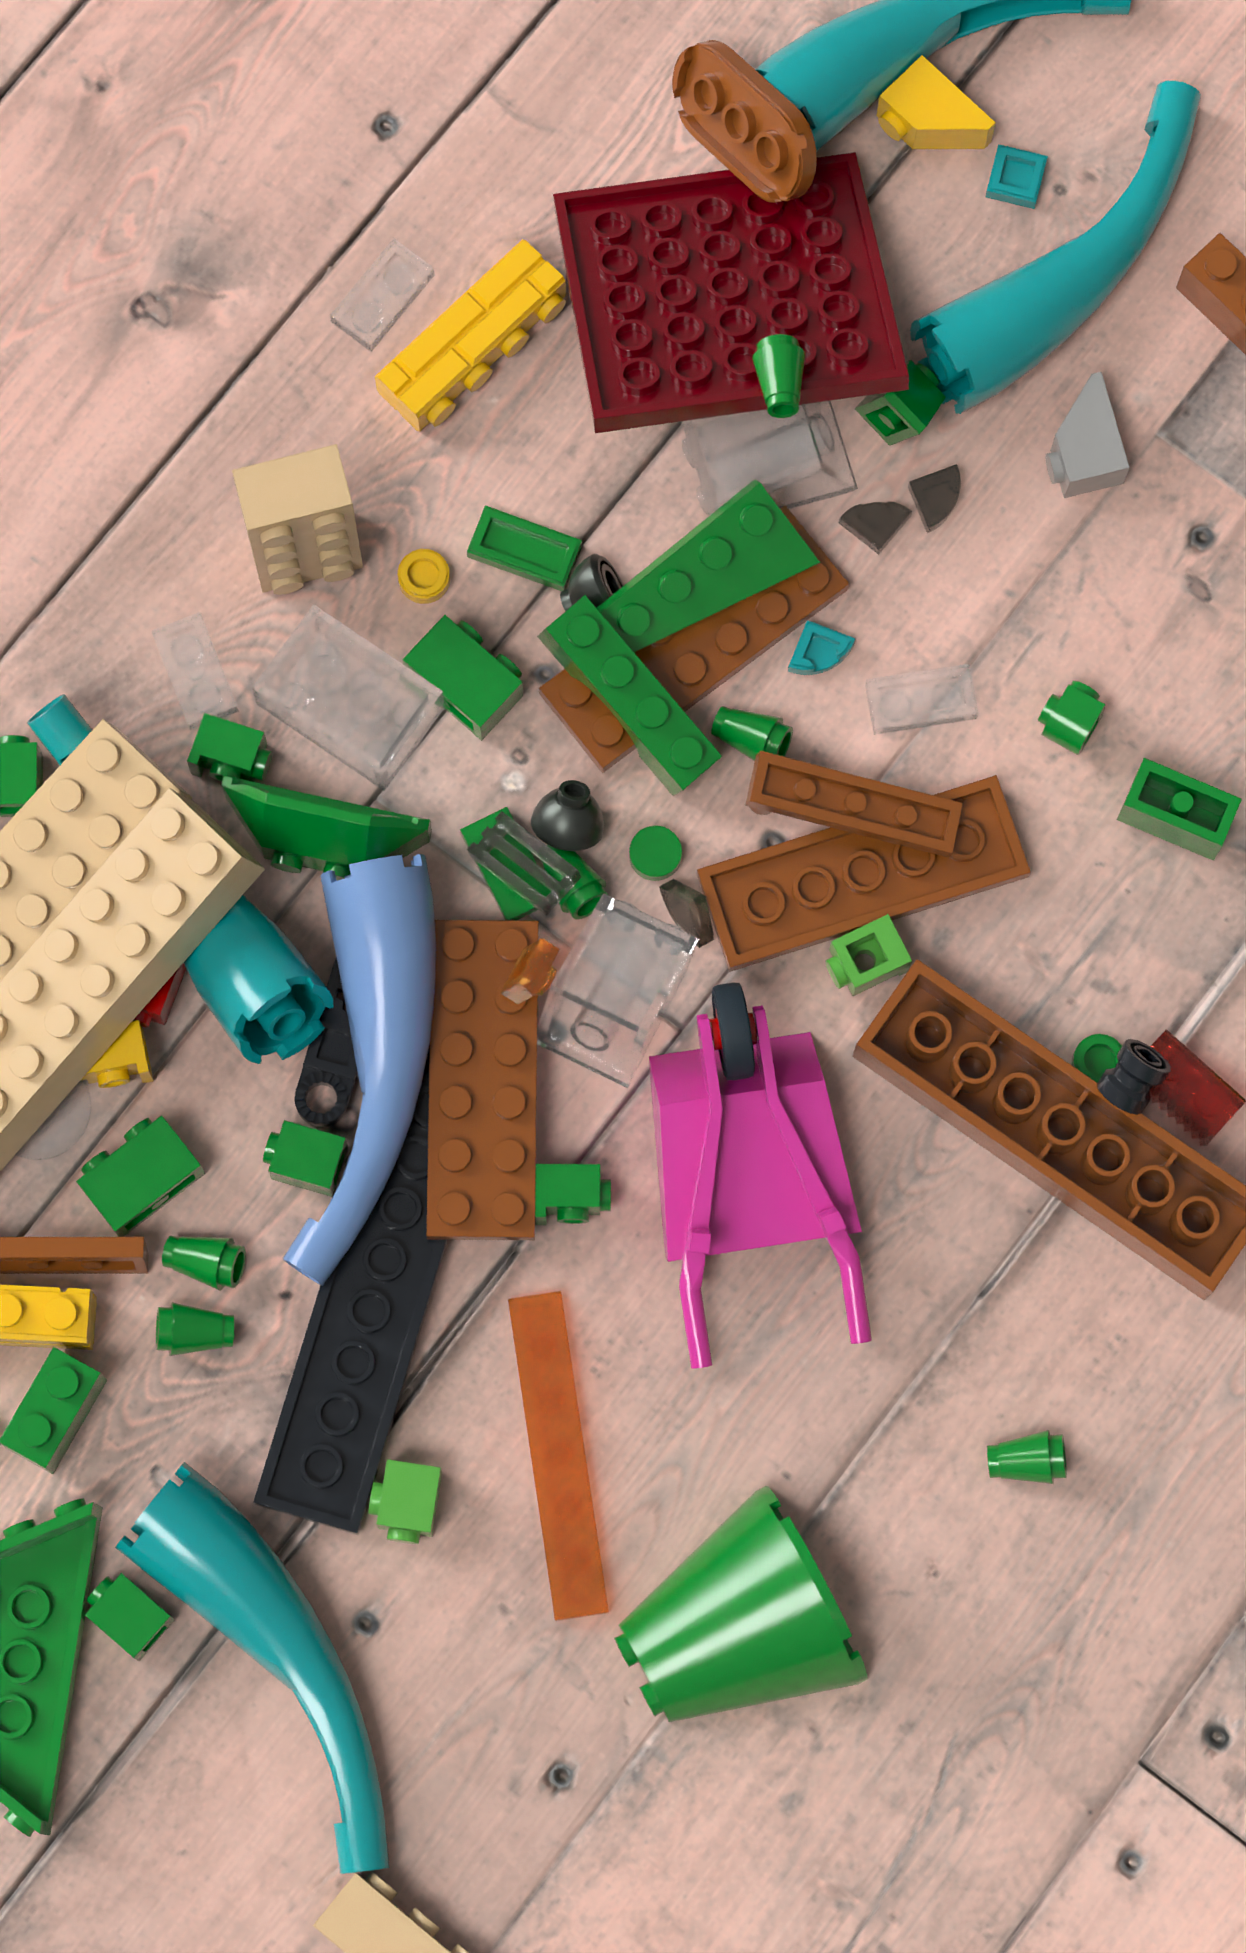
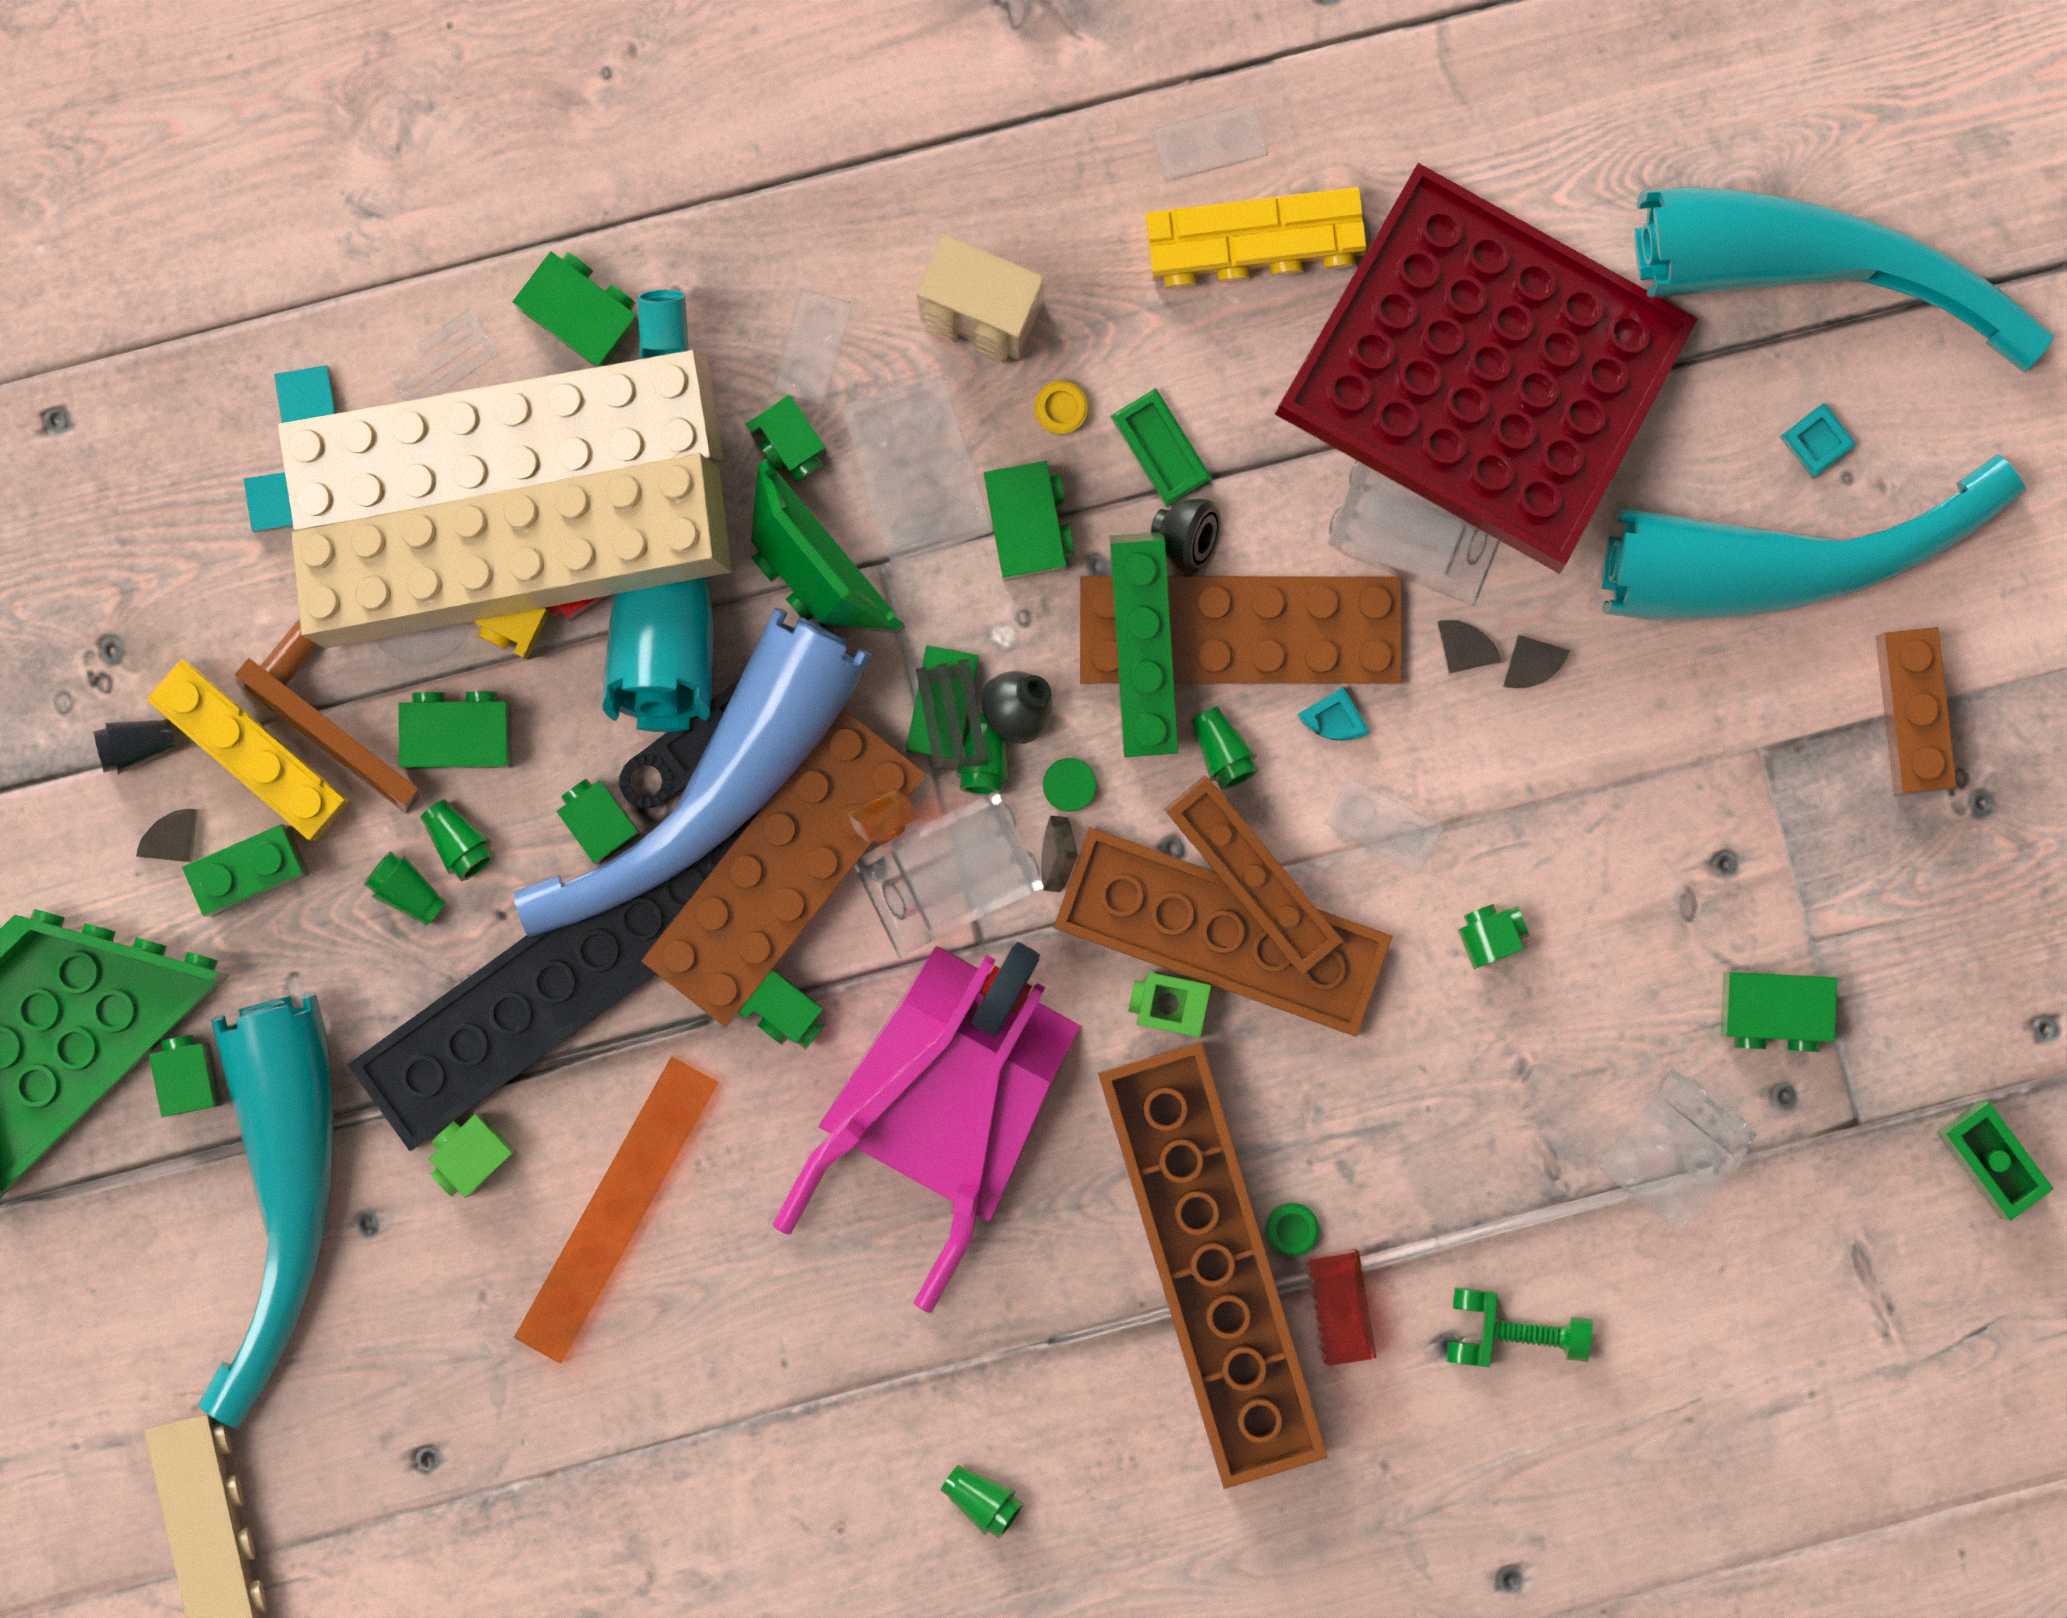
camera: 40 degrees right, 10 degrees up
(715, 565) = (1293, 590): green wing -> none
(740, 1622) = (654, 1448): green cone -> none
(744, 121) = (1618, 229): dark orange tile -> none
(780, 373) = (1457, 487): green cone -> none
(905, 412) = (1575, 582): green slope -> none
(932, 112) = (1788, 332): yellow slope -> none
(1088, 445) = (1689, 717): light grey slope -> none
(1133, 1077) = (1292, 1273): black wheel -> none
(1179, 809) = (1516, 1079): green brick -> none

